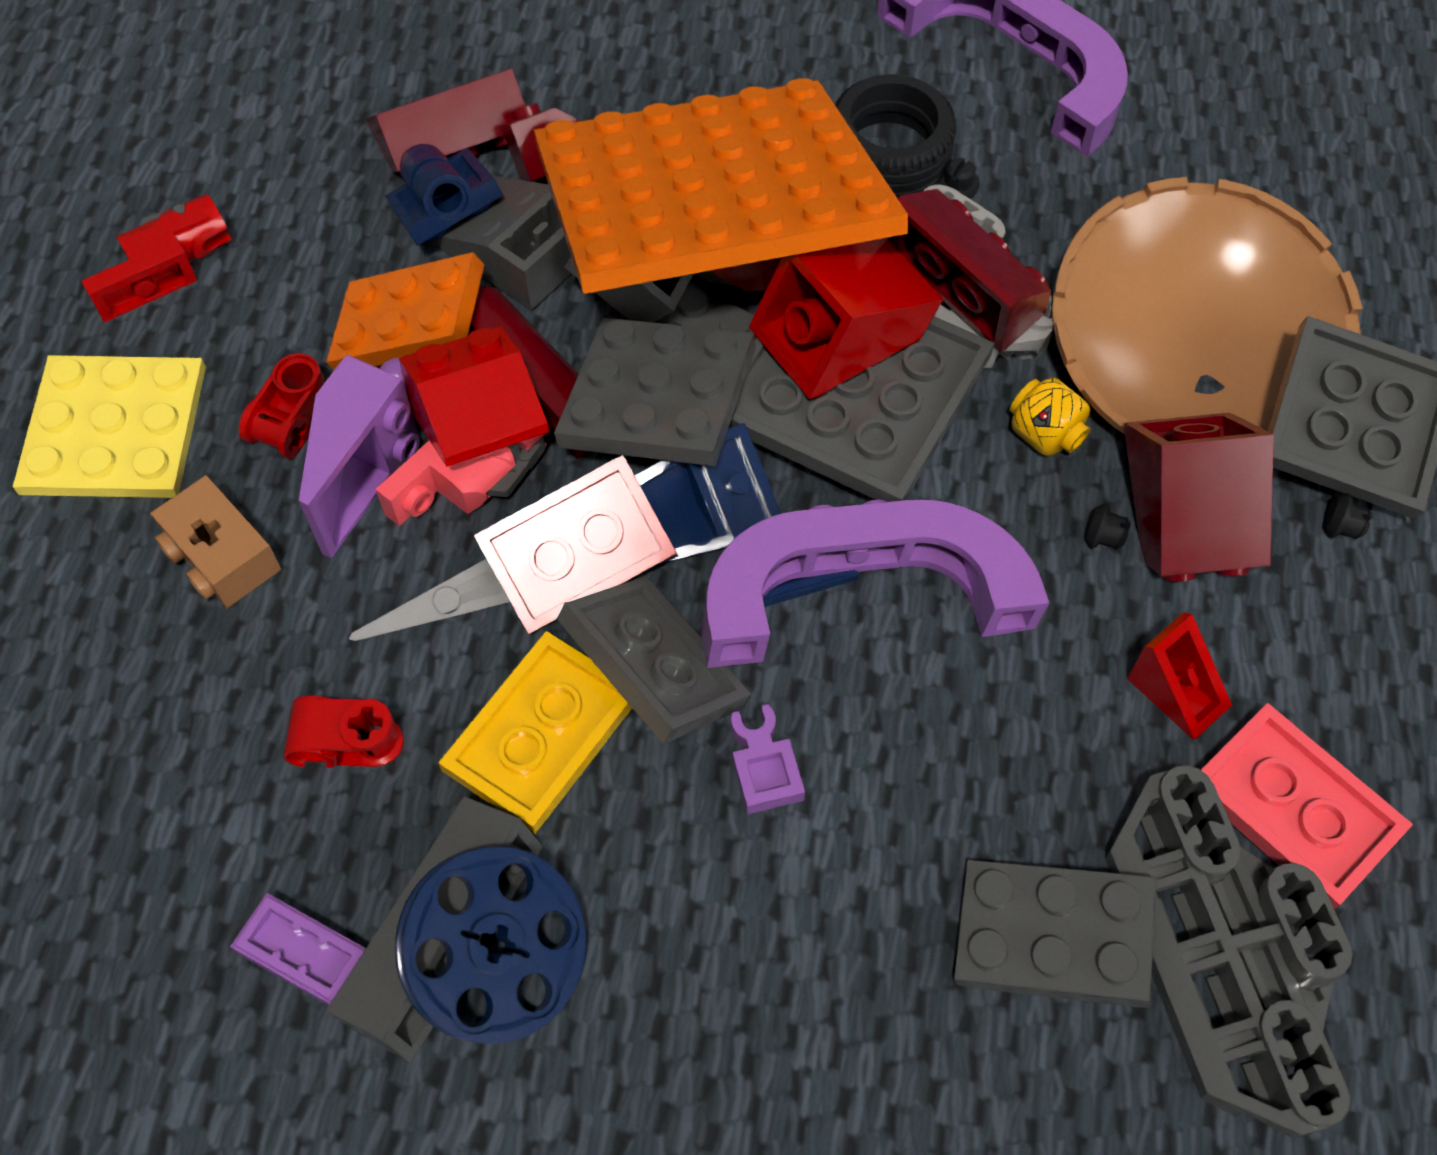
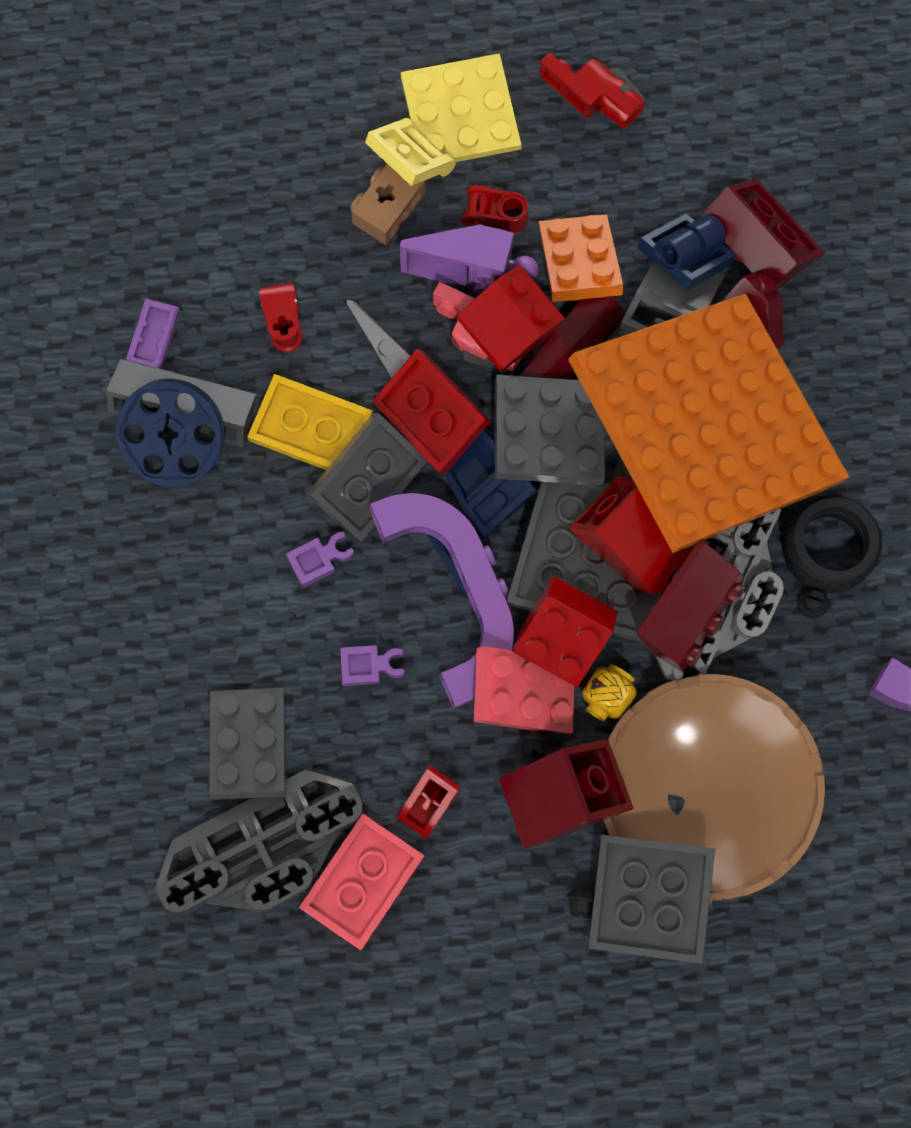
camera: 75 degrees right, 15 degrees up
(153, 483) = (409, 152): none -> light yellow plate
(950, 729) = (362, 665): none -> medium lavender plate
(969, 426) = (565, 631): none -> red brick
(1039, 510) = (520, 694): none -> coral plate

